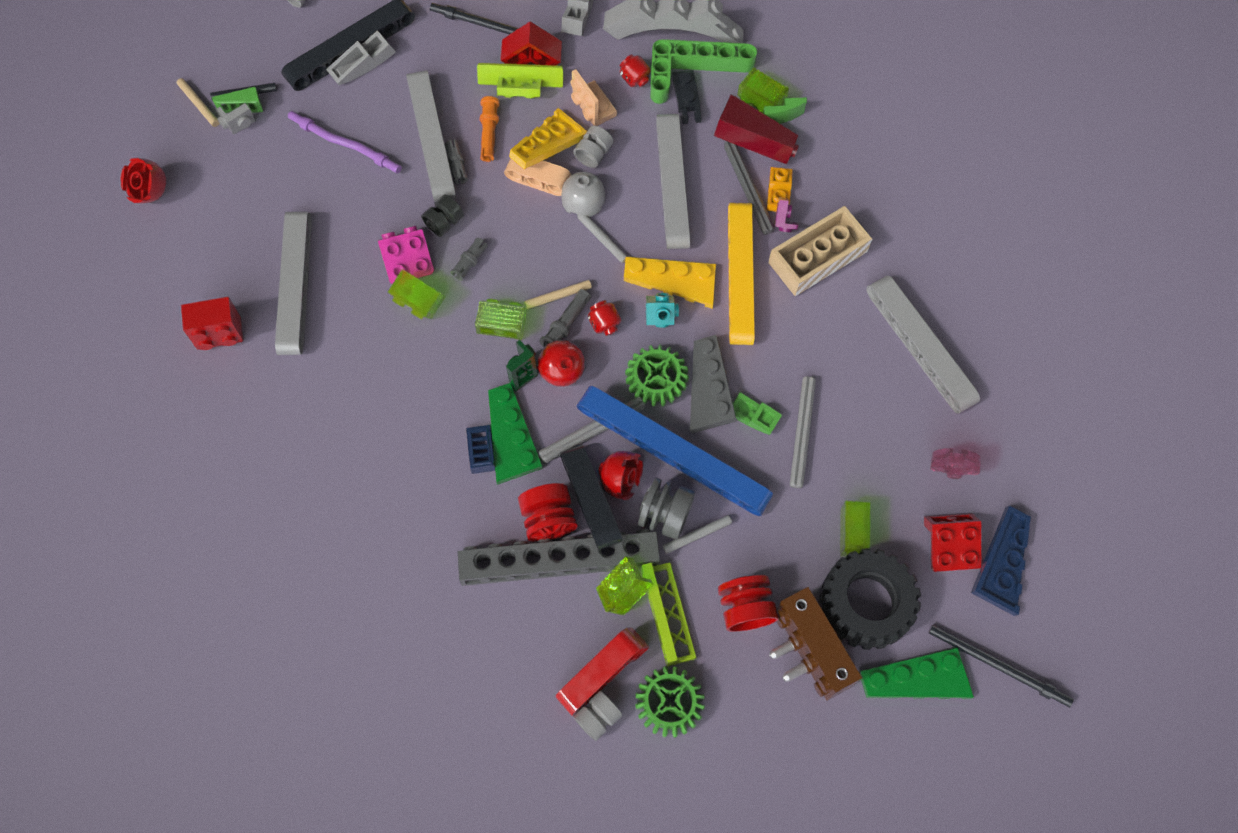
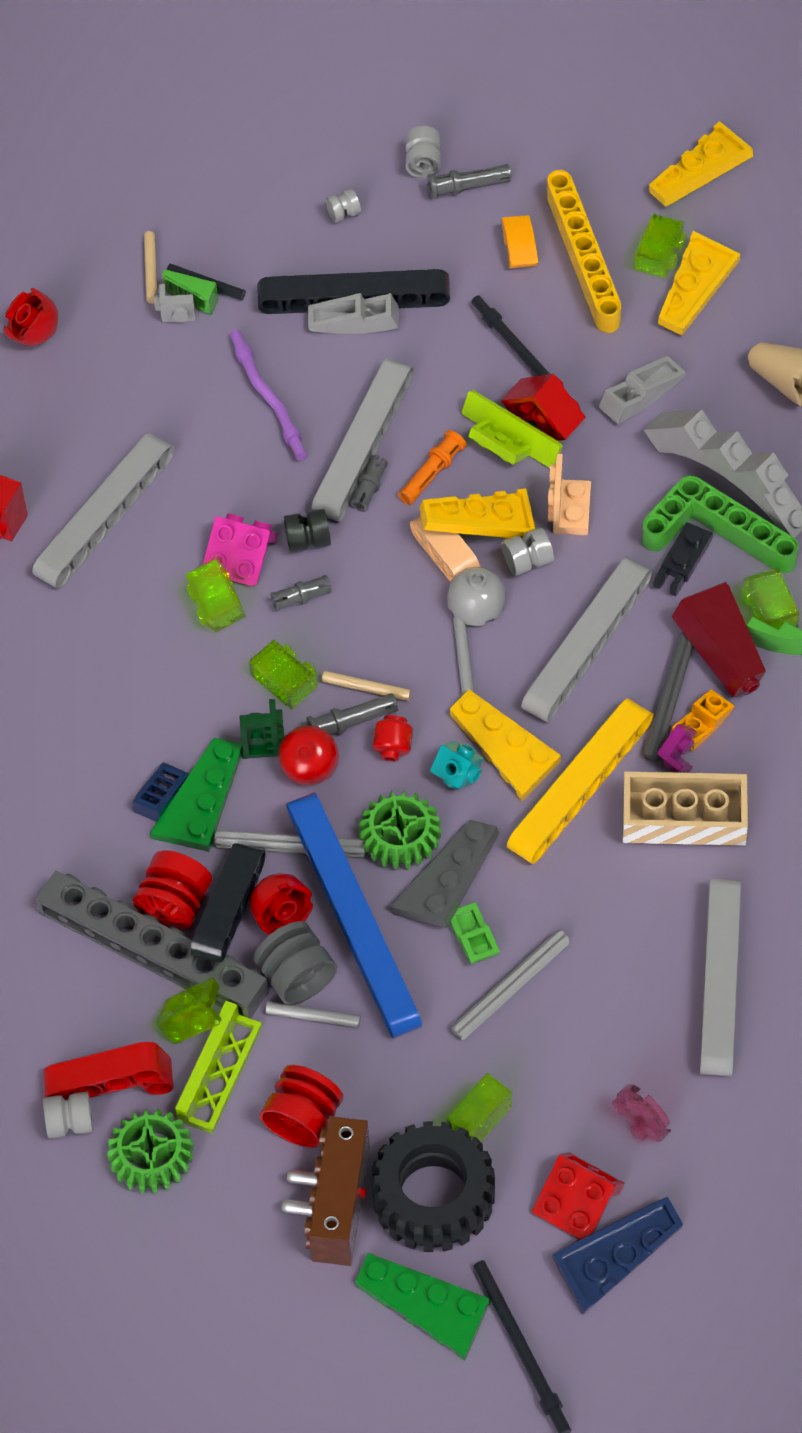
camera: 40 degrees right, 10 degrees down
(635, 71) = (642, 495): red head -> none

